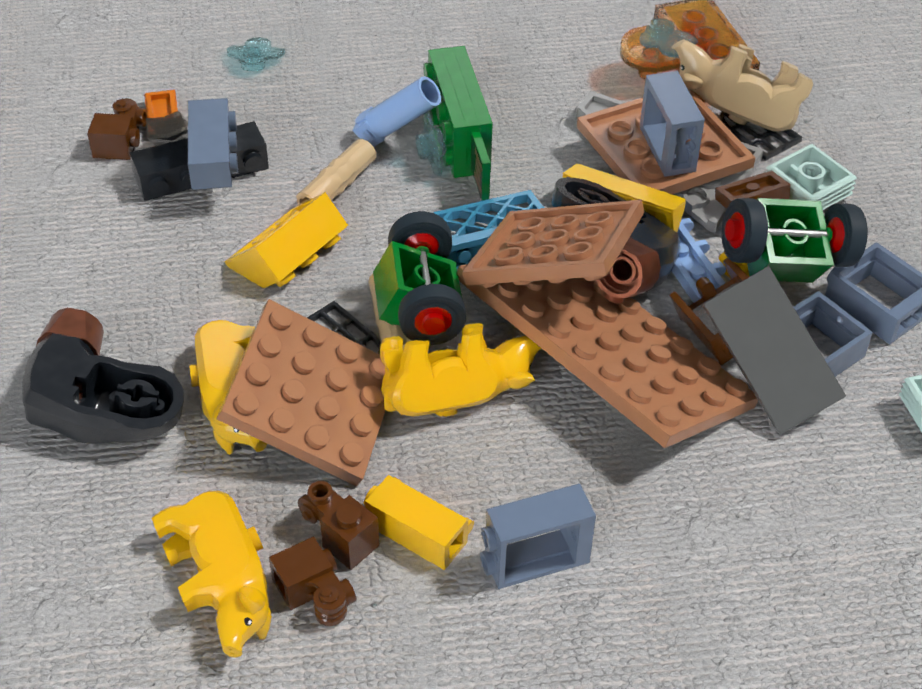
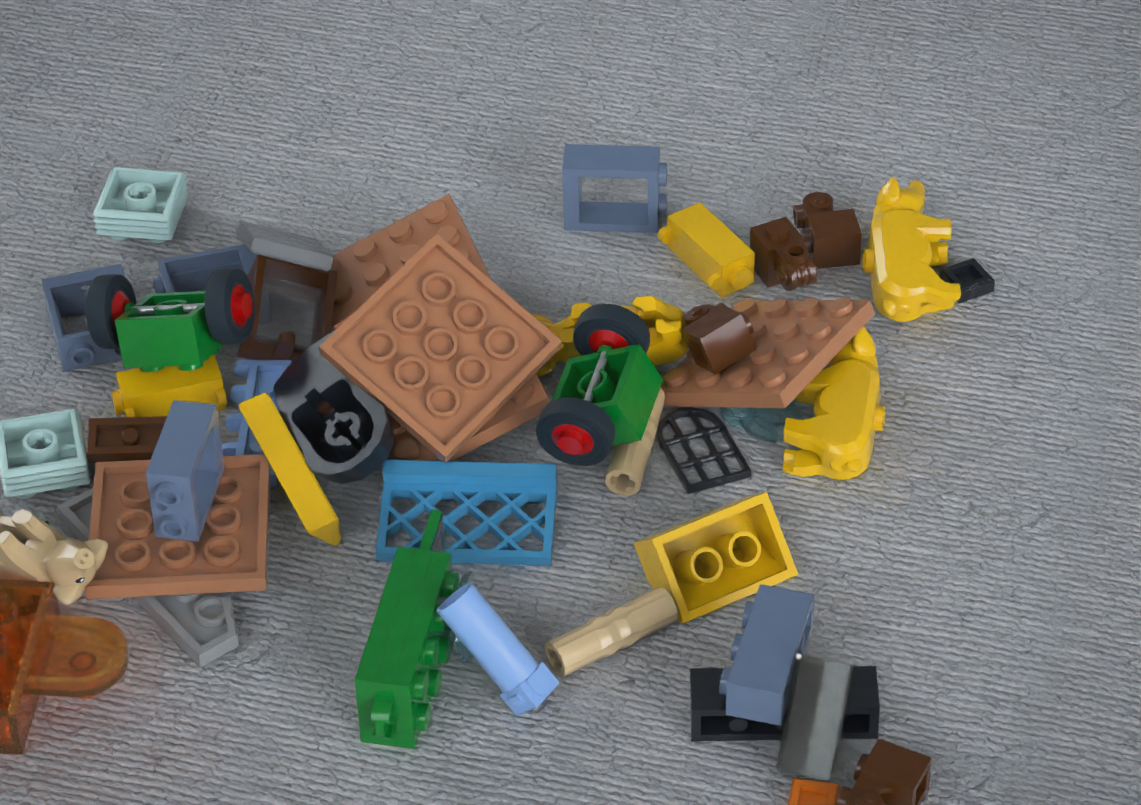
camera: 155 degrees left, 5 degrees down
(92, 394) = (997, 412): black piece -> none
(157, 581) = (972, 279): none -> black tile
(345, 368) = (717, 336): none -> reddish brown brick
(663, 36) = (60, 638): clear light blue plate -> none

